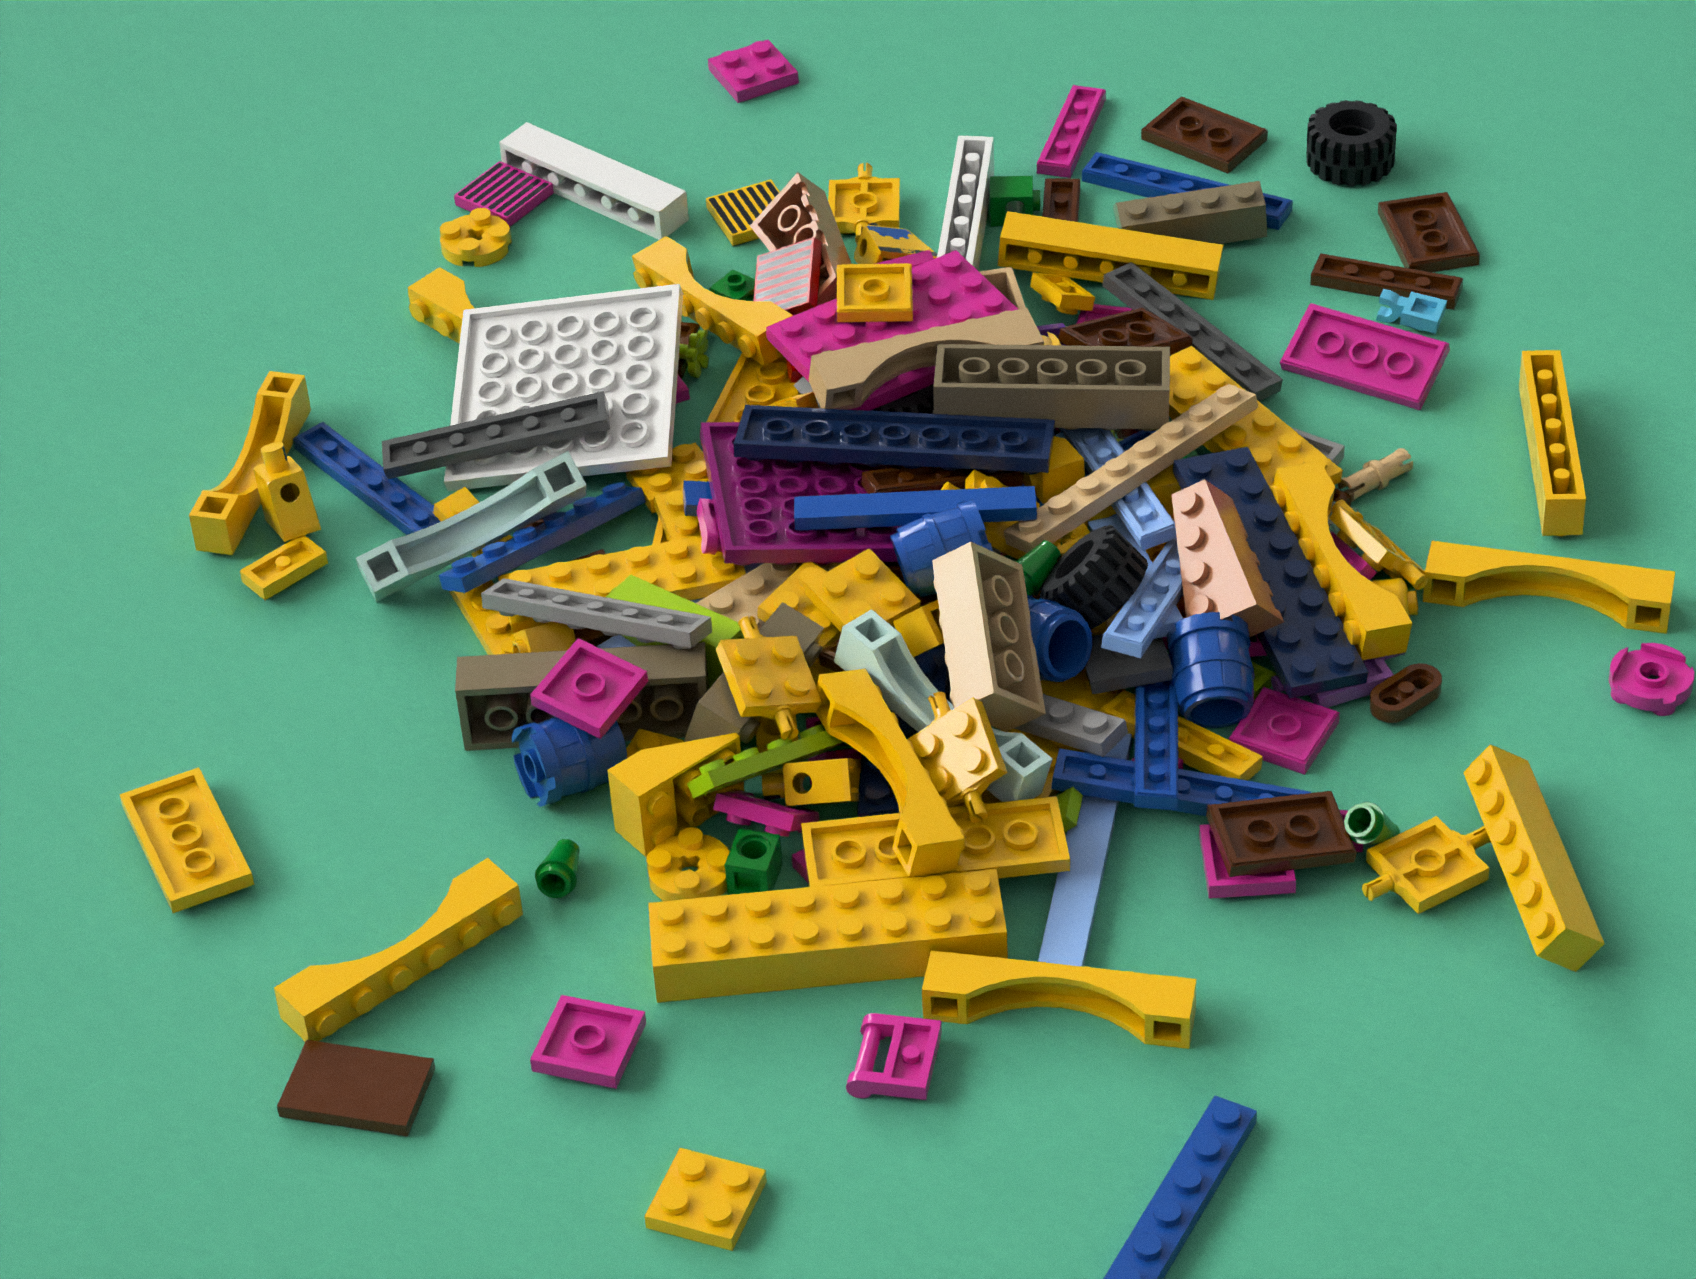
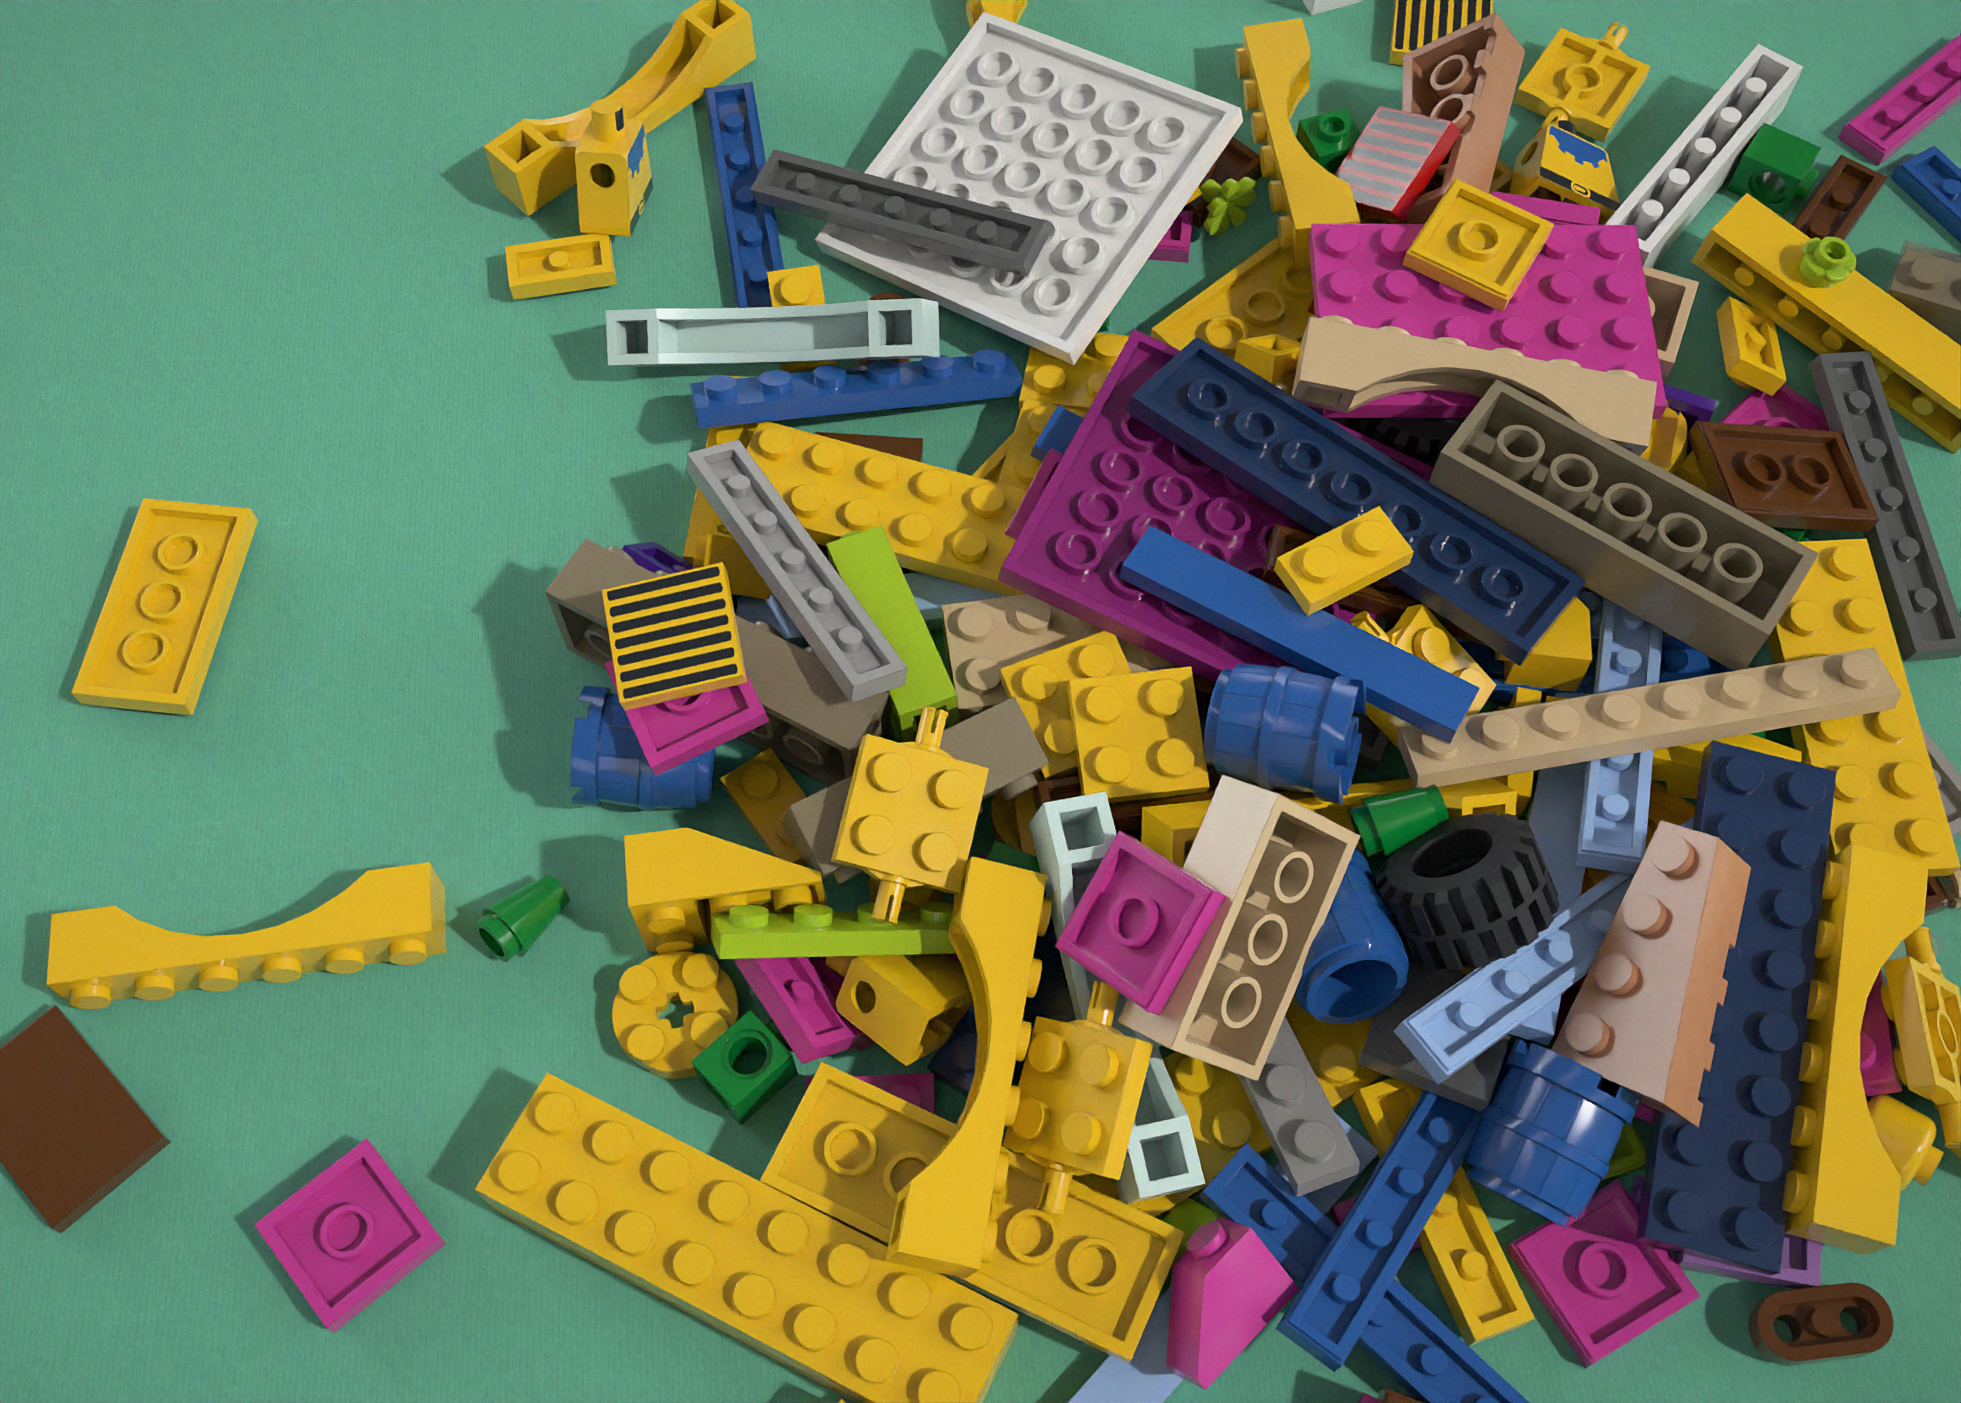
camera: 30 degrees right, 20 degrees up
(565, 657) = (673, 636): none -> tile
(917, 461) = (1343, 560): none -> yellow plate
(934, 650) = (1139, 922): none -> dark pink tile
(1077, 224) = (1827, 261): none -> lime plate
(1095, 812) = (1221, 1299): none -> dark pink slope

